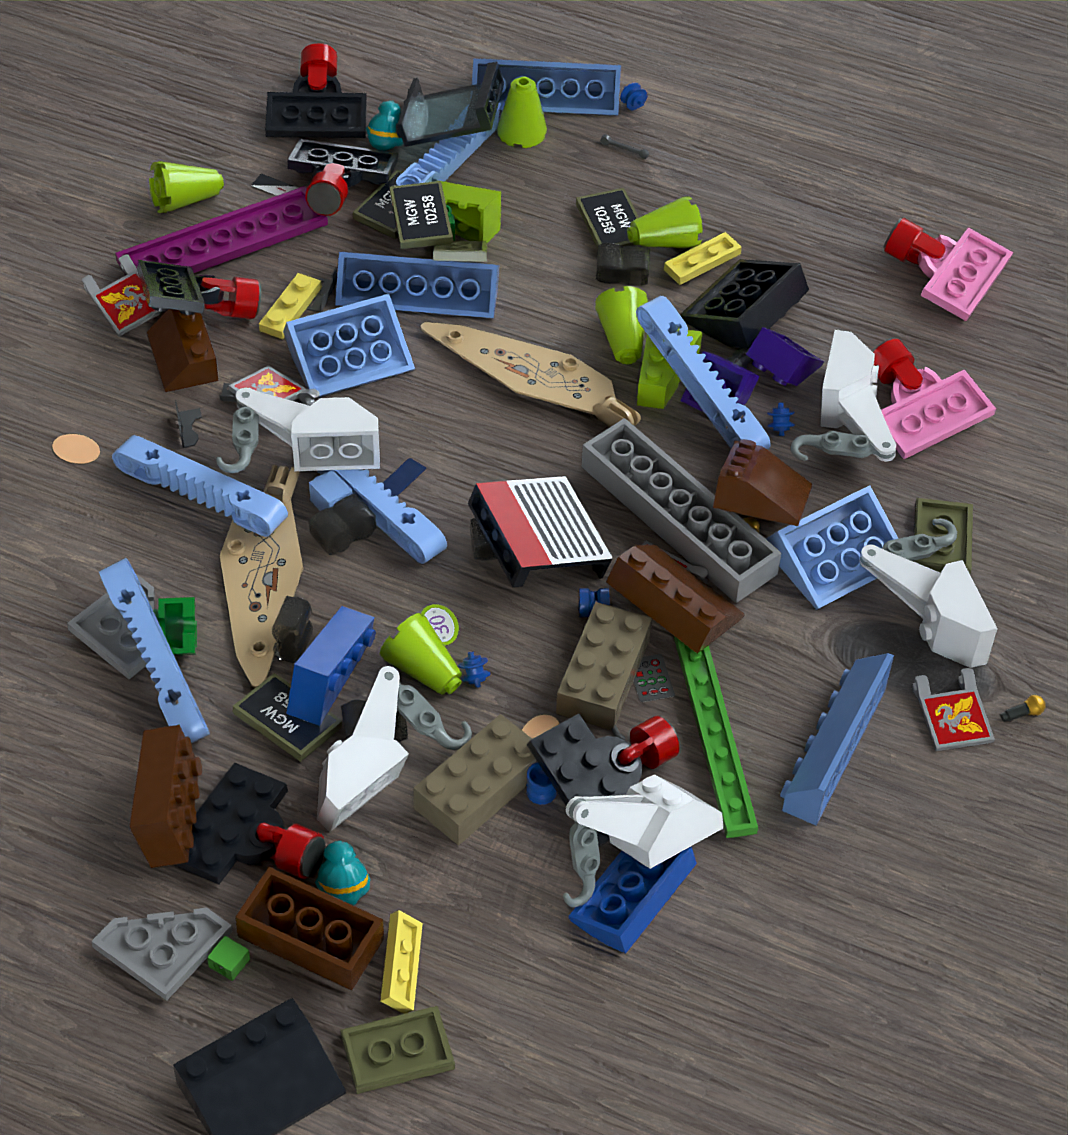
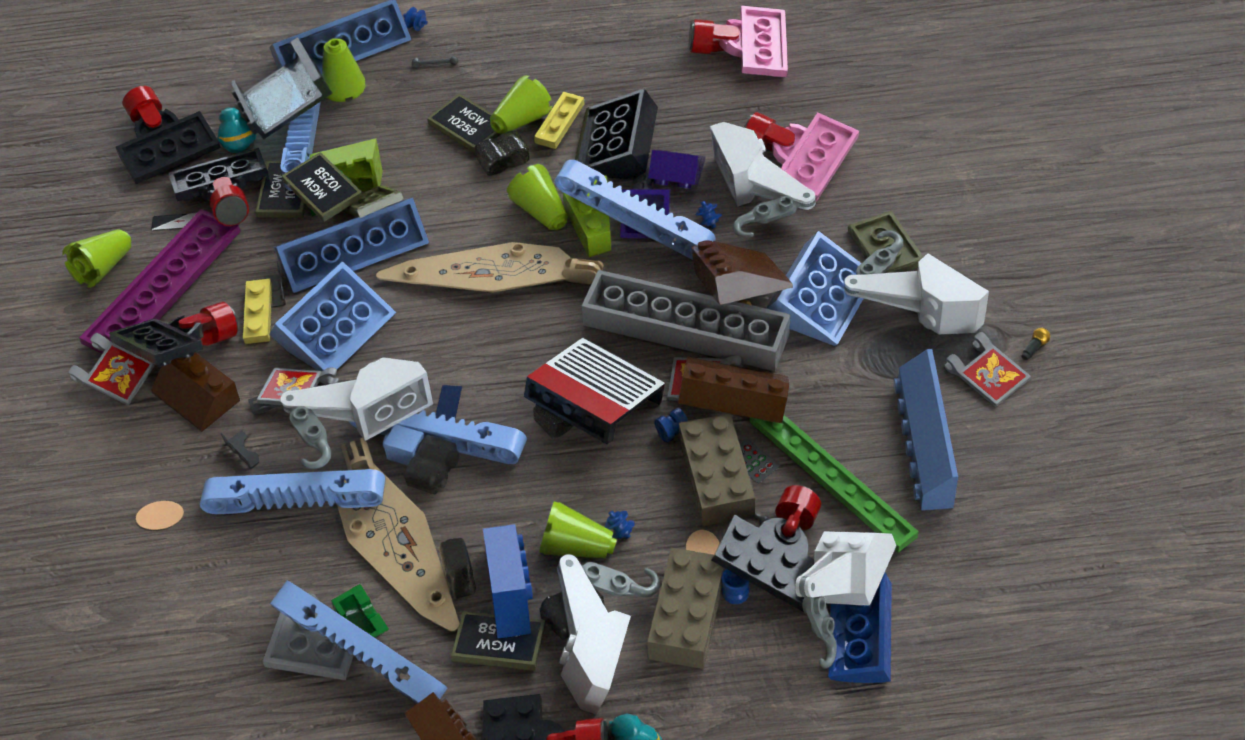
camera: 25 degrees left, 0 degrees up
(443, 622) = (563, 496): sticker -> none

